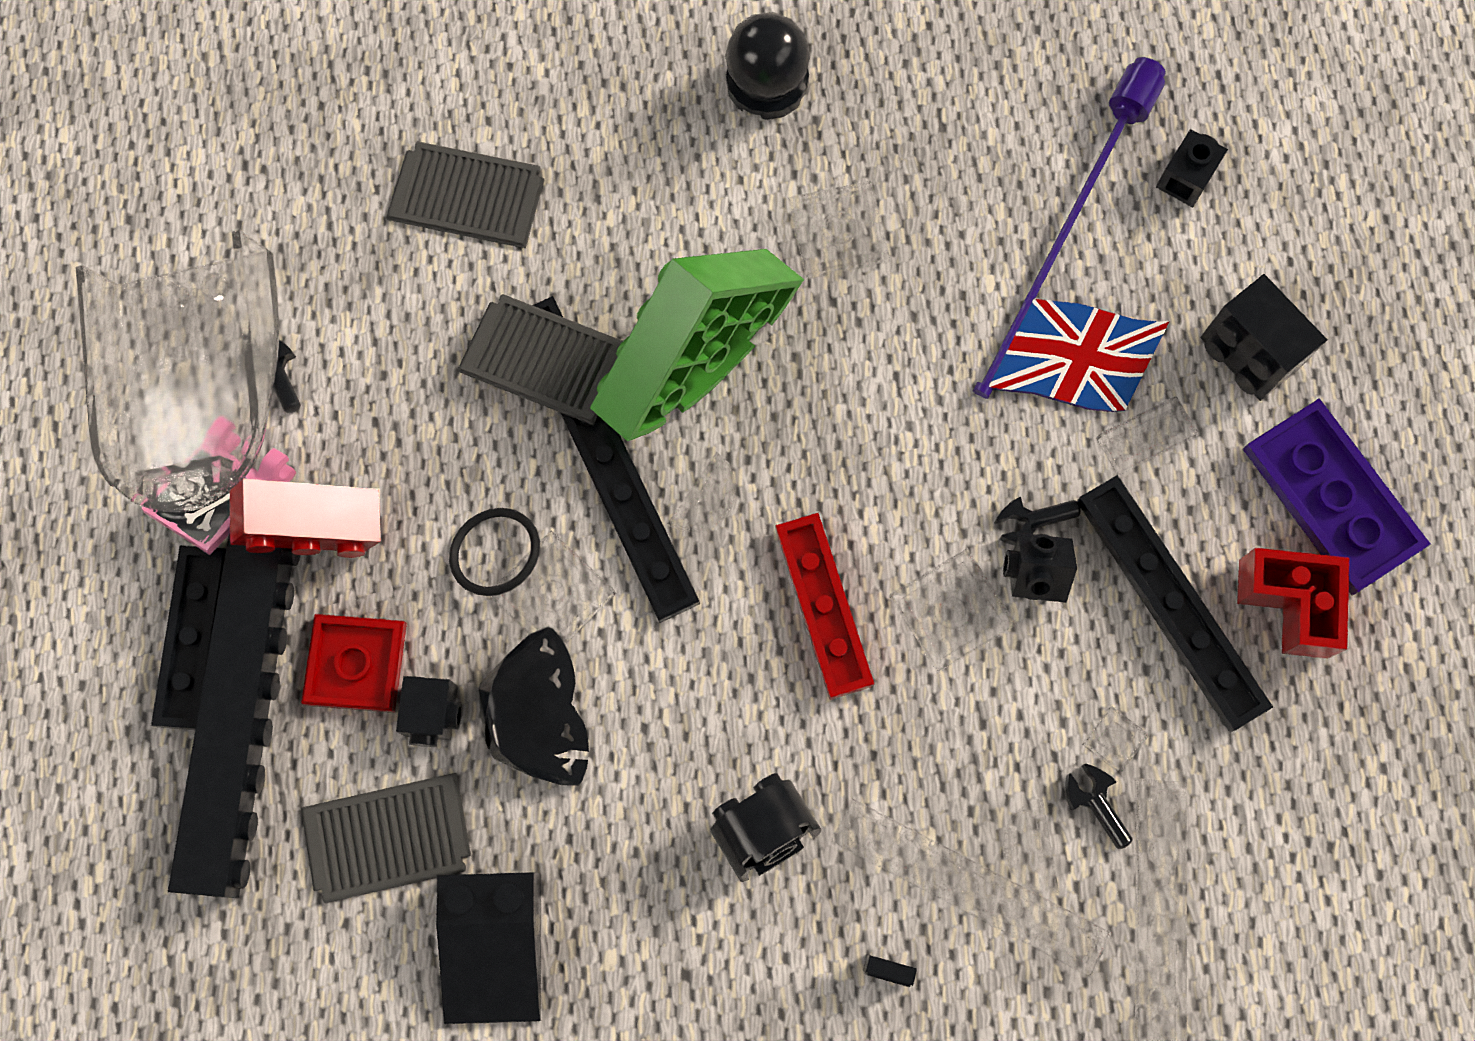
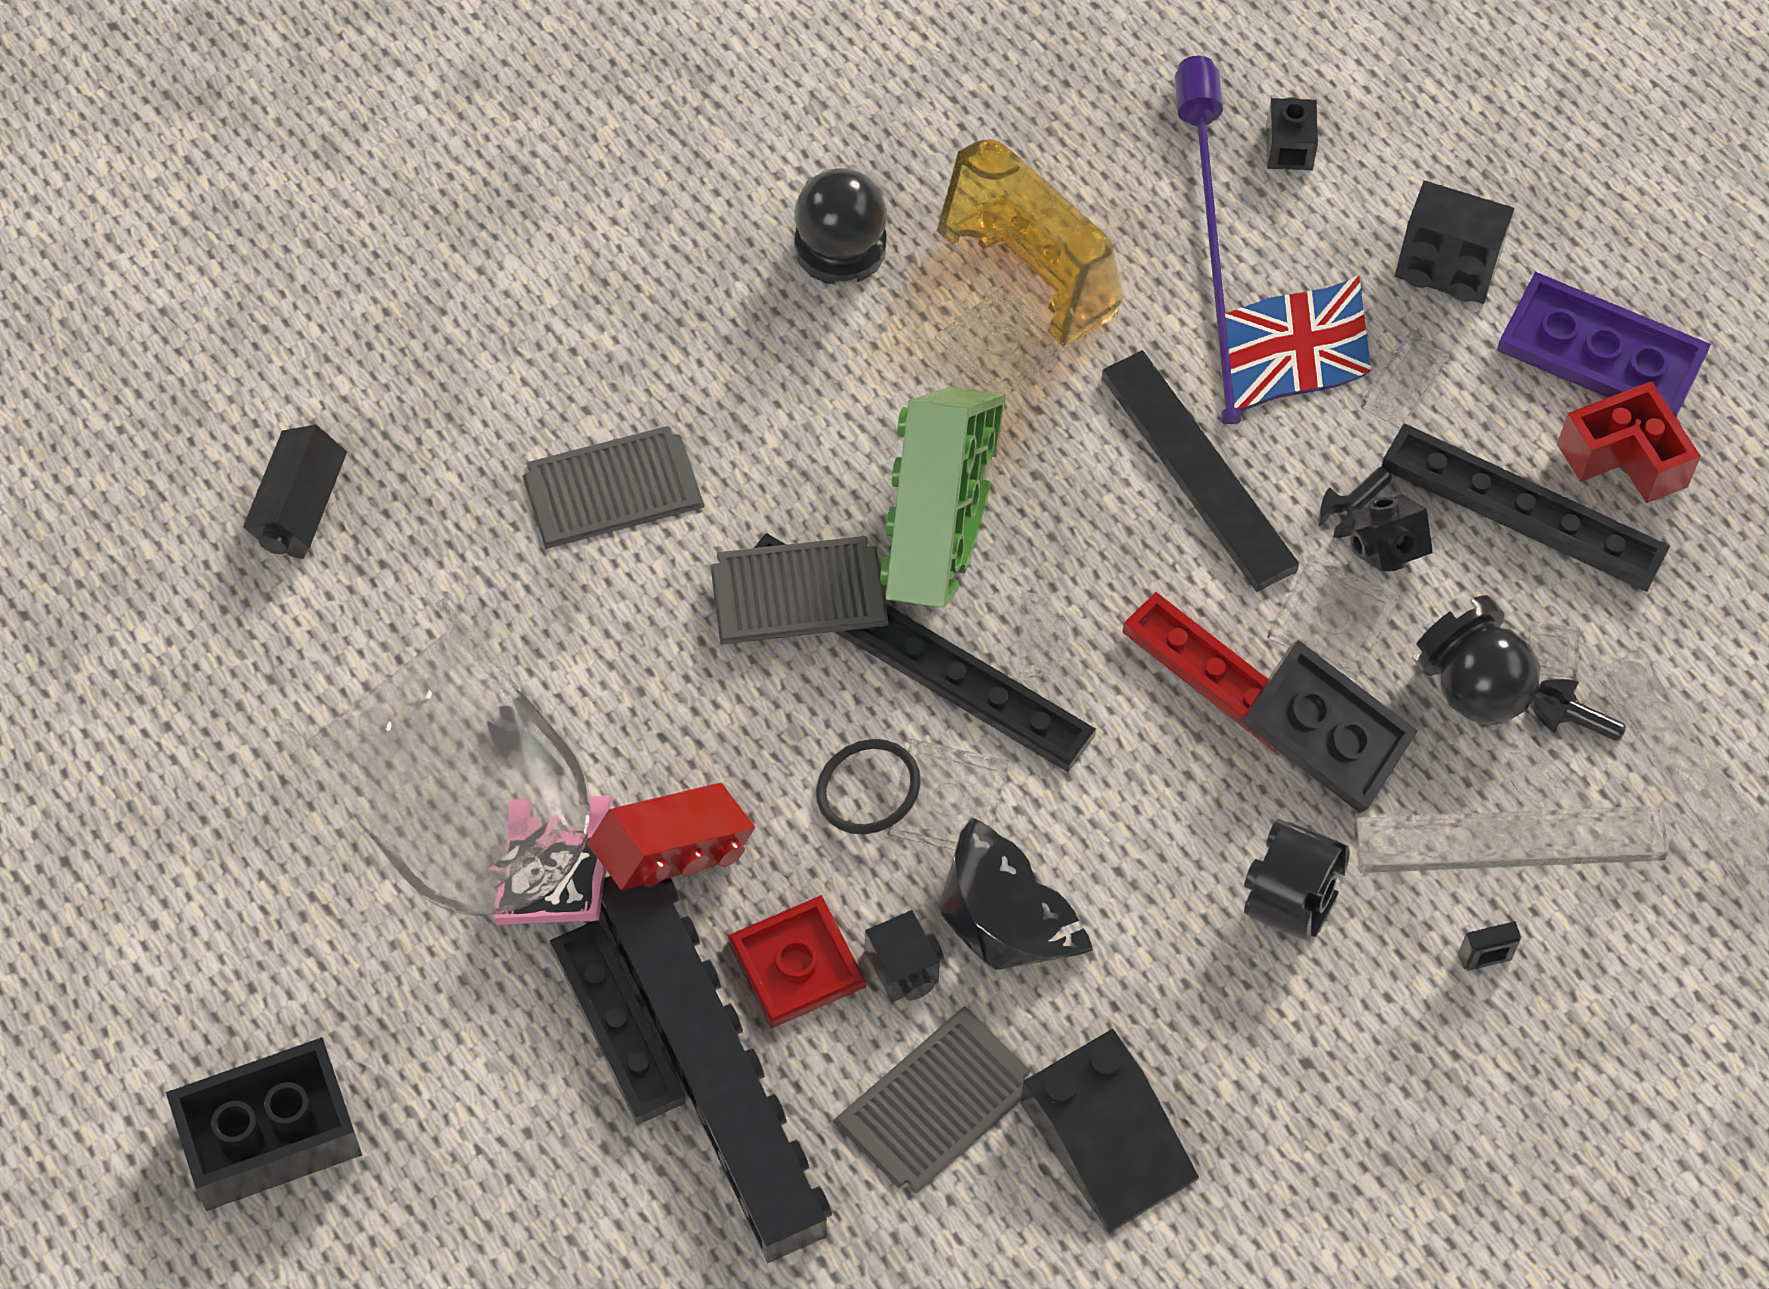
camera: 35 degrees left, 15 degrees down
(225, 77) = (295, 490): none -> black brick
(878, 708) = (1328, 726): none -> black plate
(898, 109) = (1006, 201): none -> clear yellow windscreen
(926, 425) = (1200, 471): none -> black tile
(1037, 732) = (1483, 668): none -> black tile

